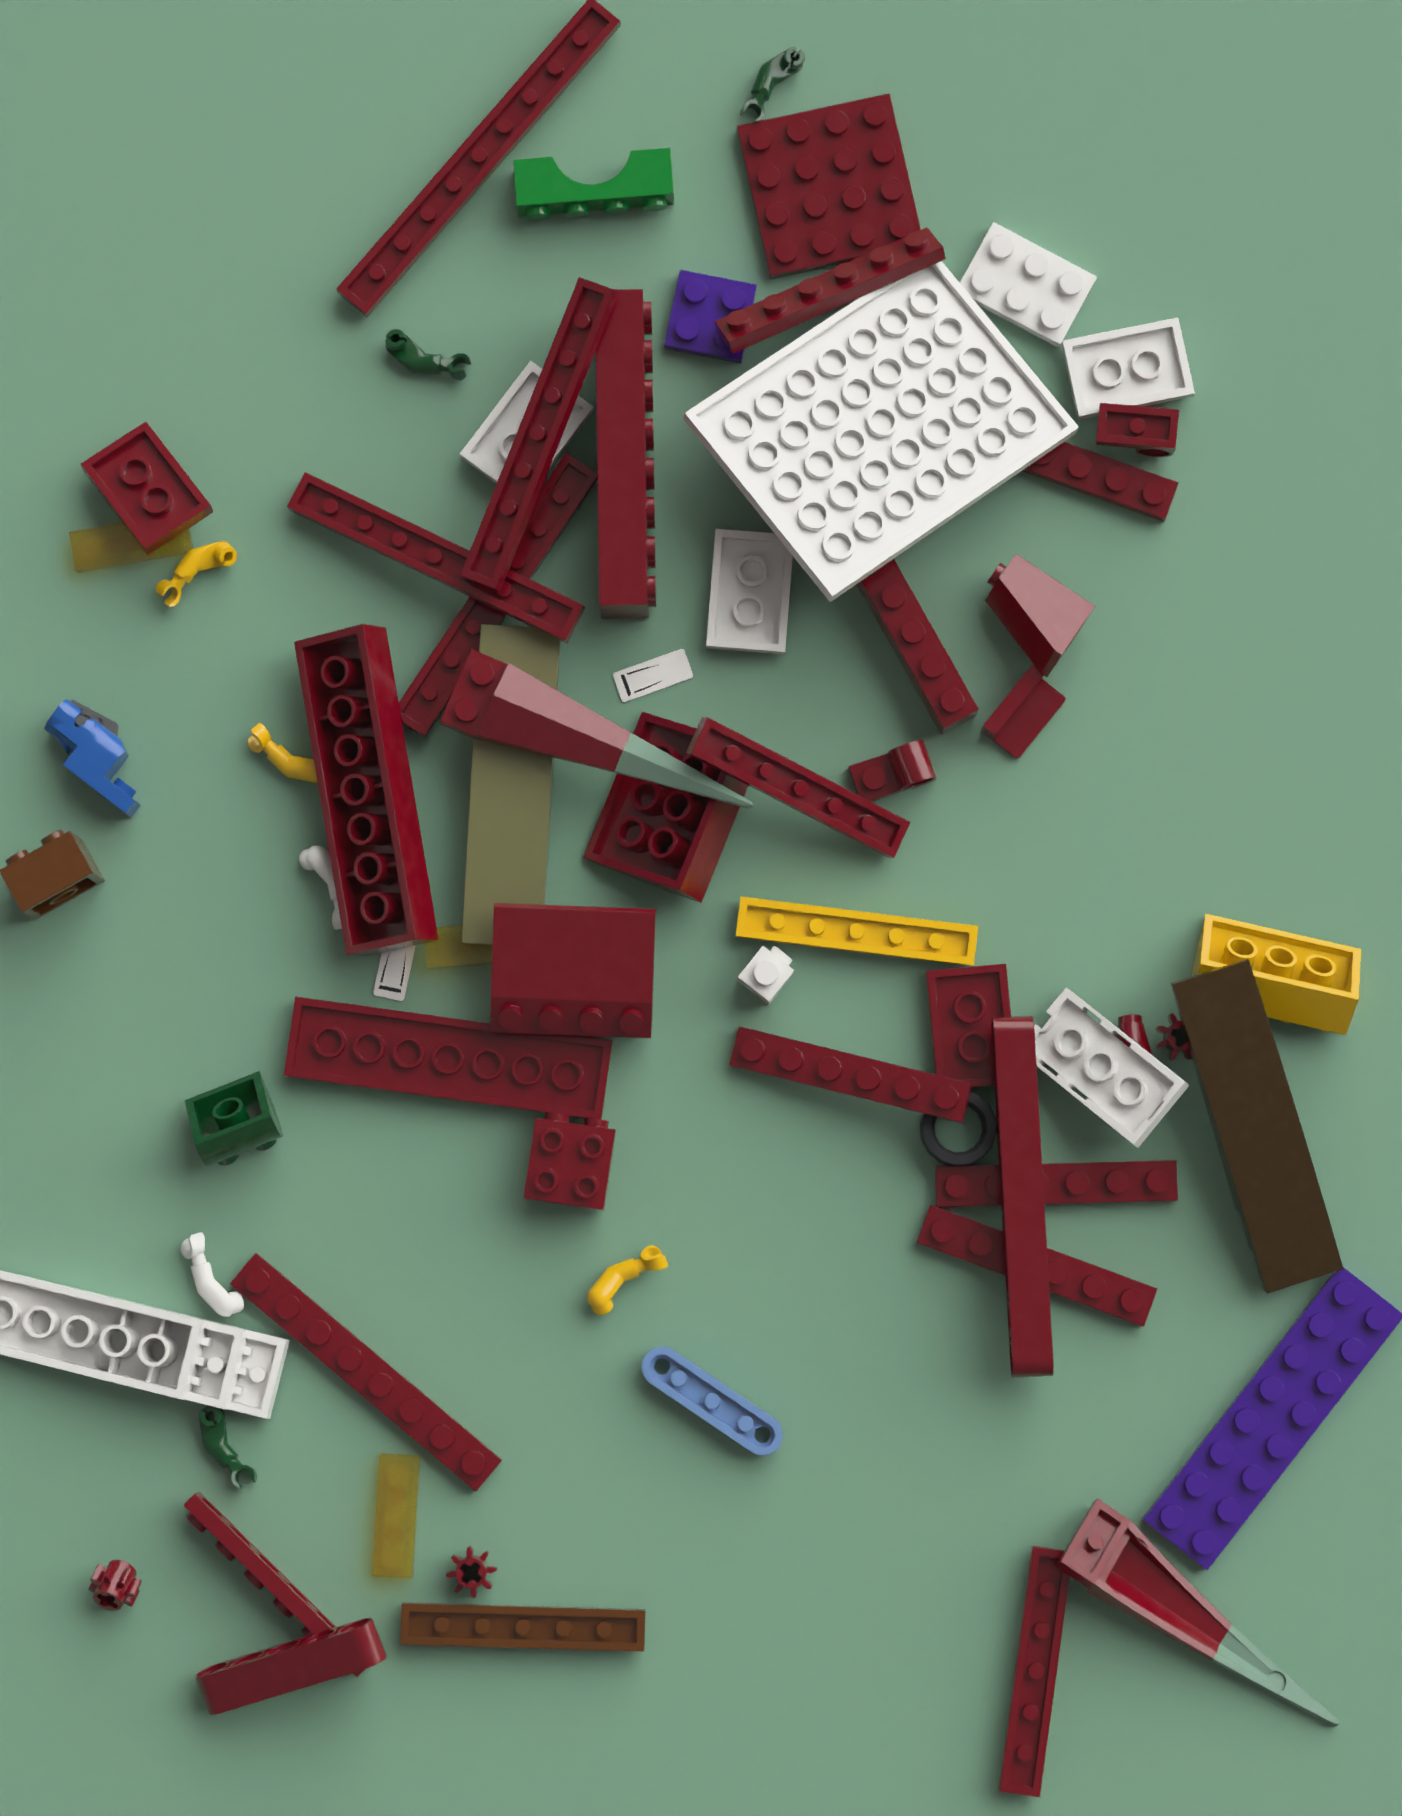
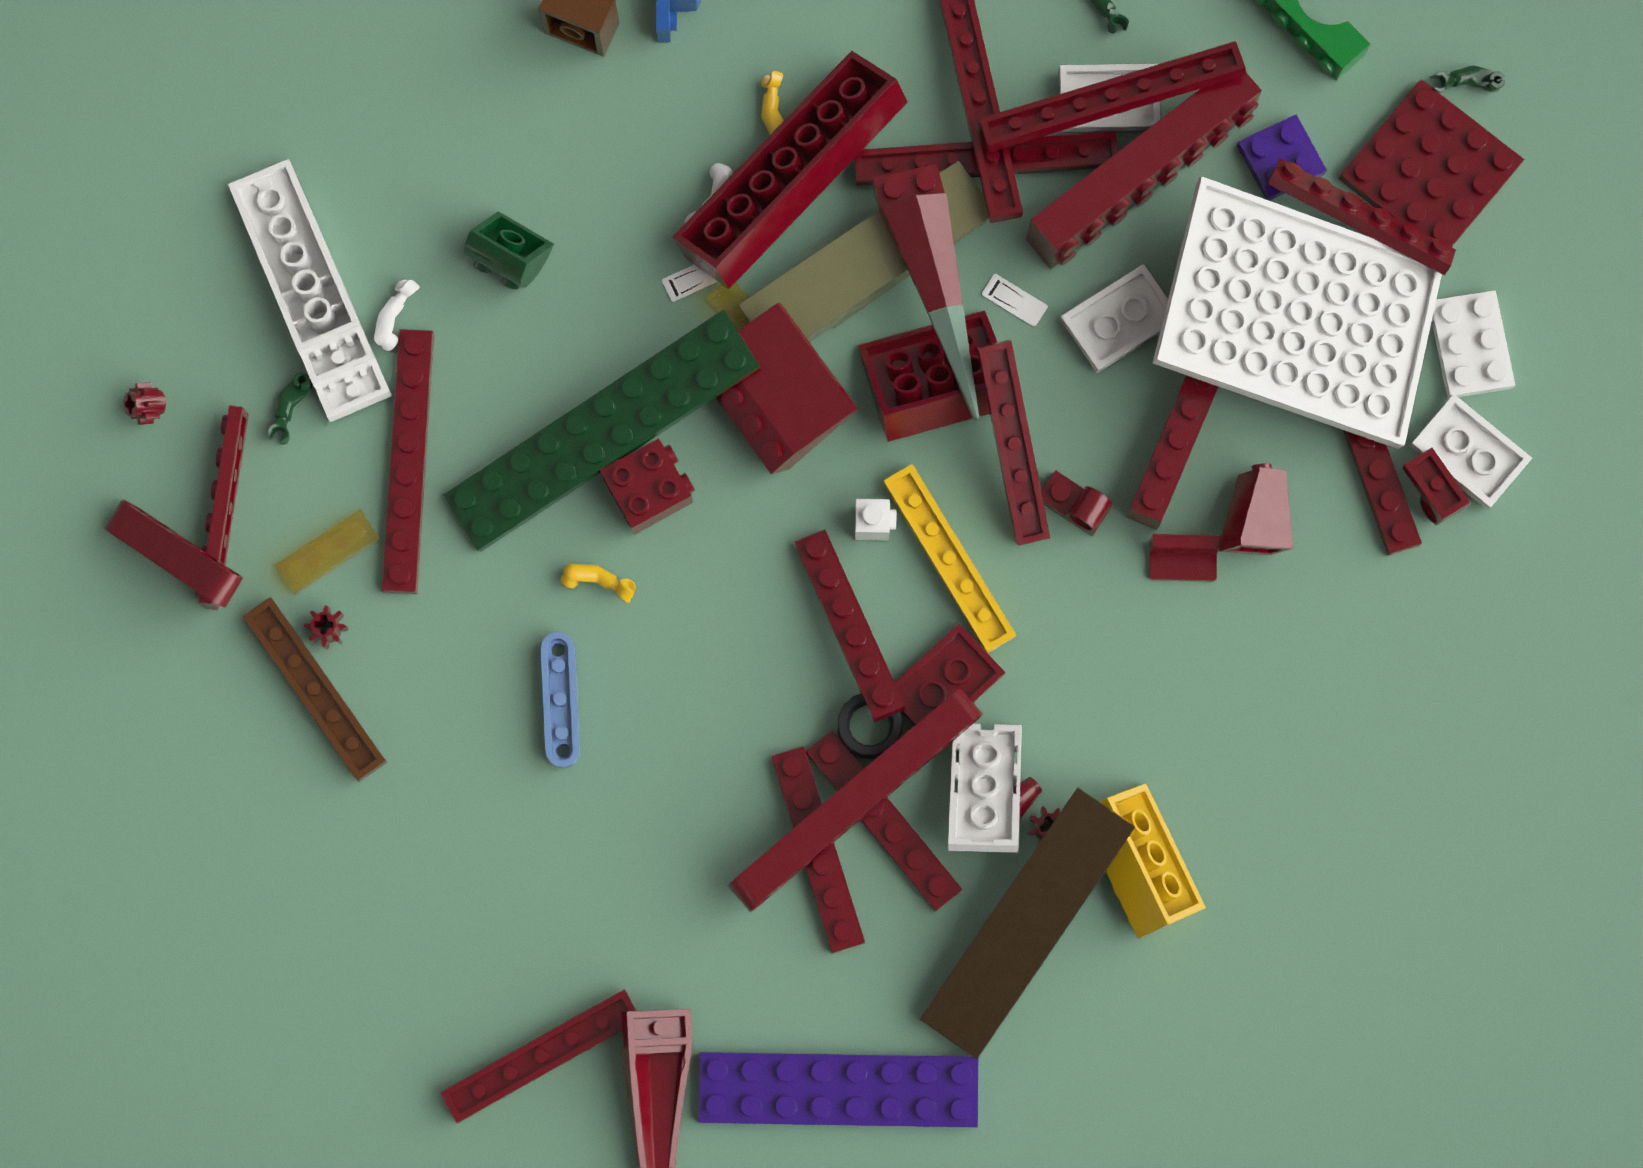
camera: 50 degrees right, 5 degrees down
(447, 1058) = (639, 328): dark red plate -> none
(485, 1166) = (602, 430): none -> dark green plate

